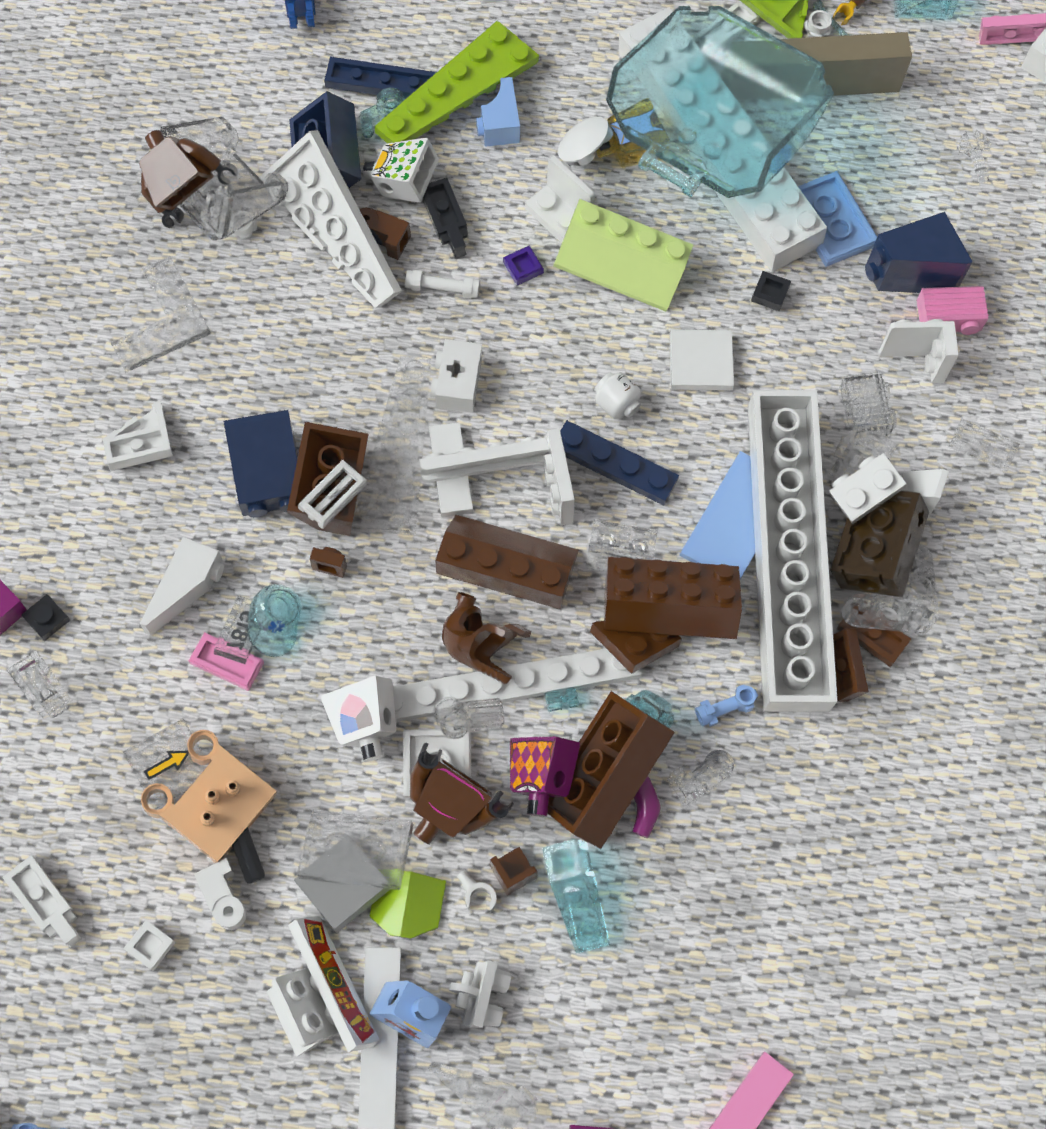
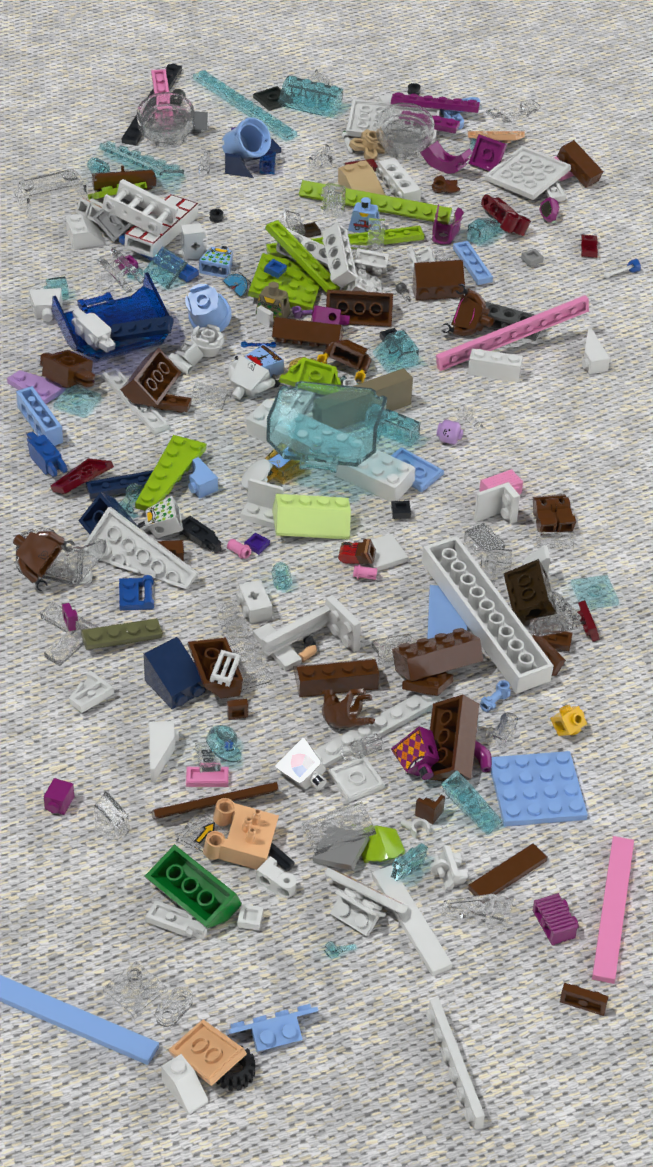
camera: 25 degrees left, 25 degrees down
(45, 617) = (88, 793): black plate -> none
(89, 864) = (193, 888): none -> green slope
(170, 298) = (69, 616): none -> magenta plate
(208, 714) = (211, 801): none -> reddish brown tile
(236, 354) = (121, 634): none -> olive plate
(236, 1060) = (333, 951): none -> clear light blue hand
(291, 282) = (130, 593): none -> blue plate
(330, 40) = (82, 473): none -> dark red wing
(413, 1013) = (419, 881): light blue torso -> none
(437, 954) = (408, 862): none -> clear light blue plate
(450, 799) = (376, 784): reddish brown torso -> none
(469, 287) = (233, 562): white bar -> none
(492, 271) = (242, 550): none -> bright pink pin
(496, 494) = (310, 648): none -> light nougat arm
(523, 344) = (281, 576): none -> clear light blue brick
(555, 700) = (404, 727): clear light blue piece -> none
(568, 1041) = (508, 871): none -> reddish brown tile
(617, 395) = (349, 580): white head -> none
(617, 463) = (377, 613): dark blue plate -> none
(653, 387) = (364, 572): none -> bright pink pin
(658, 348) = (357, 552): none -> leg
(699, 905) = (537, 789): none -> light blue plate
(812, 807) = (568, 720): none -> yellow brick
(849, 132) = (400, 428): none -> clear light blue brick
(867, 487) = (509, 568): white bracket -> none
(918, 257) = (469, 466): dark blue slope -> none
(926, 173) = (449, 432): none -> lavender head
(950, 614) = (589, 626): none -> dark red plate
(993, 571) = (596, 591): none -> clear light blue tile
(1006, 395) = (553, 513): none -> reddish brown hips

